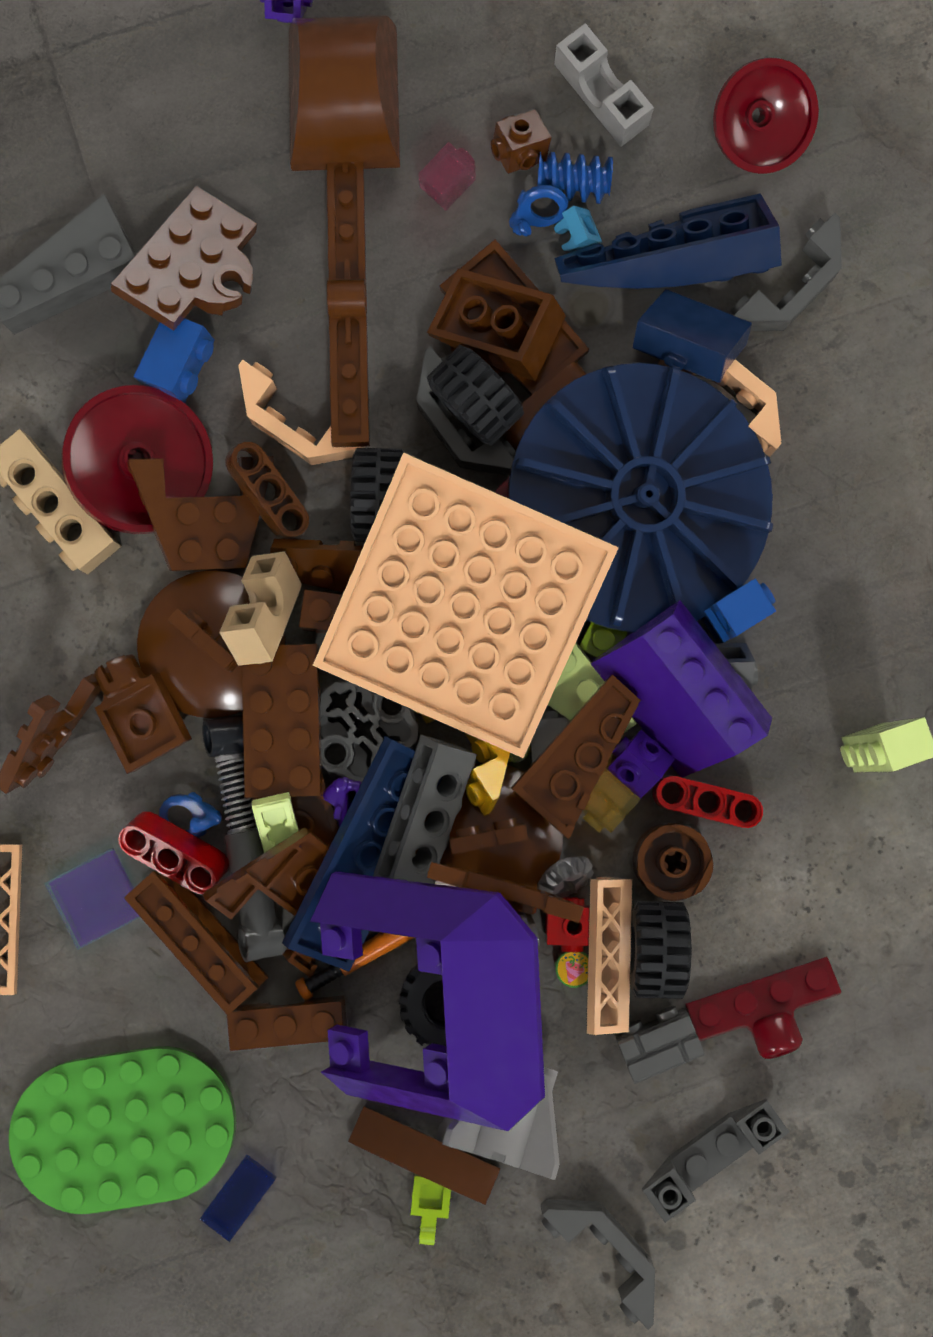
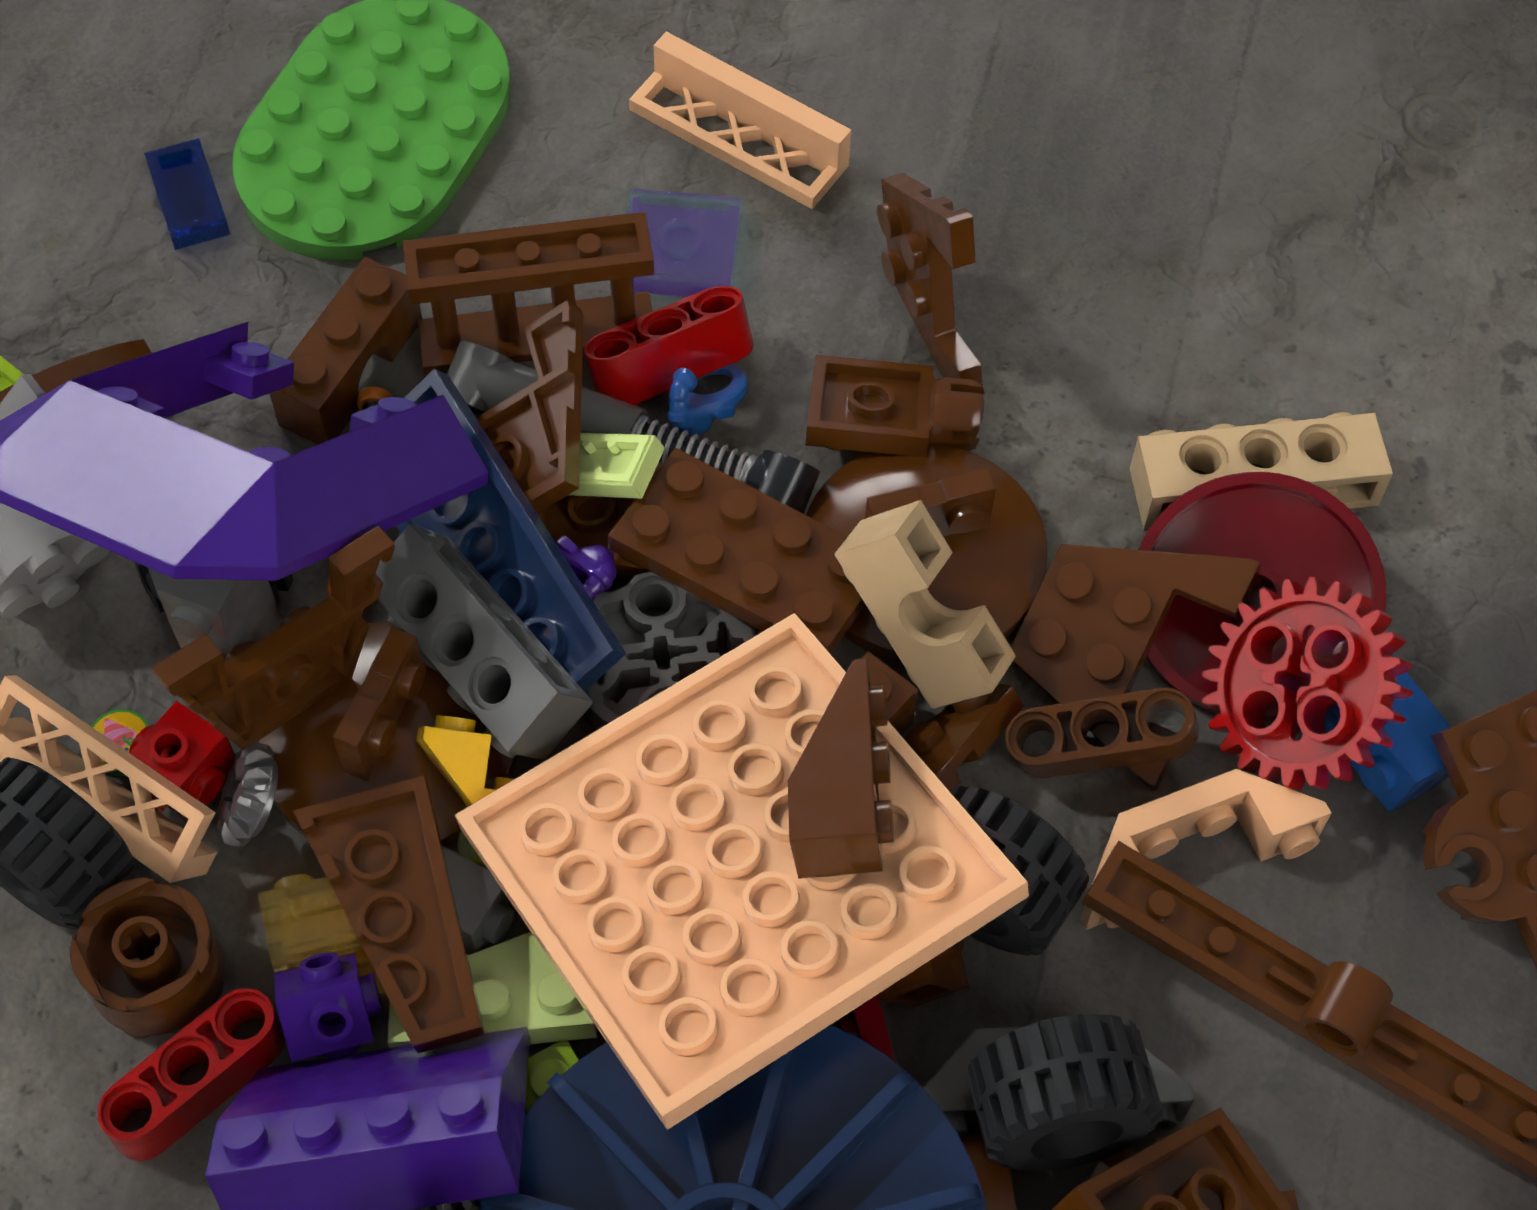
camera: 120 degrees right, 25 degrees down
(179, 369) = (1360, 686): none -> red gear
(412, 569) = (834, 786): none -> reddish brown slope

